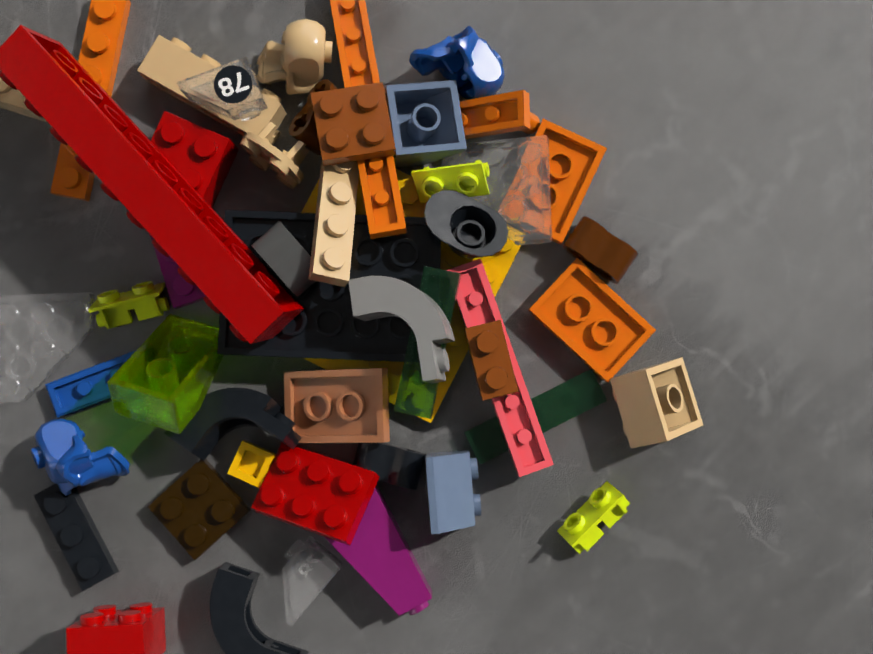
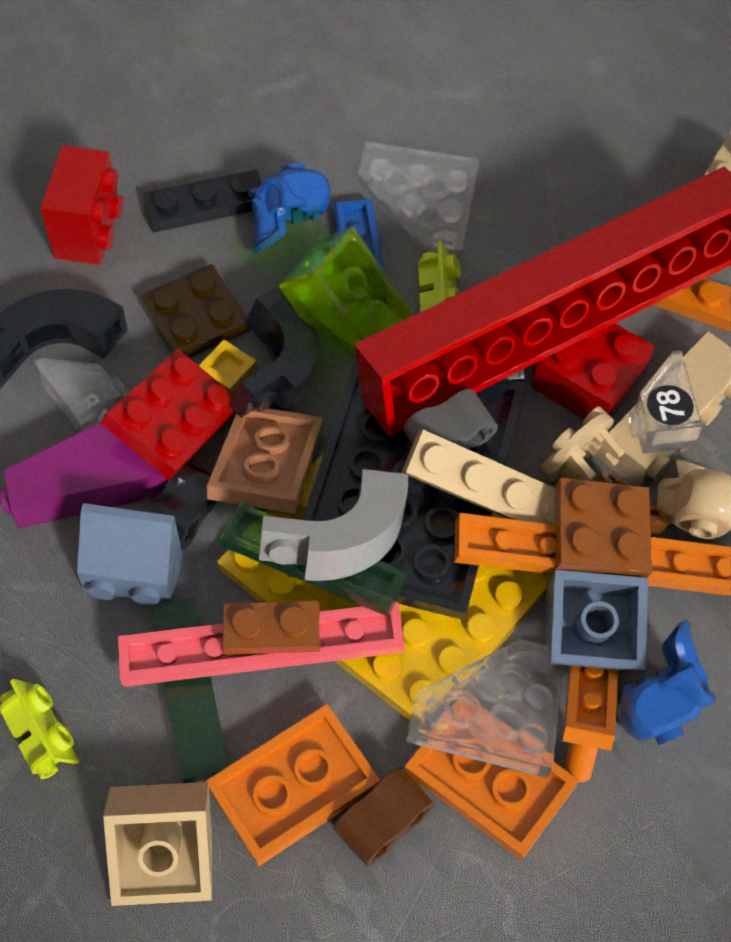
camera: 100 degrees right, 25 degrees down
(463, 178) = (511, 636): neon yellow hinge -> none
(465, 224) = (450, 630): black piece -> none

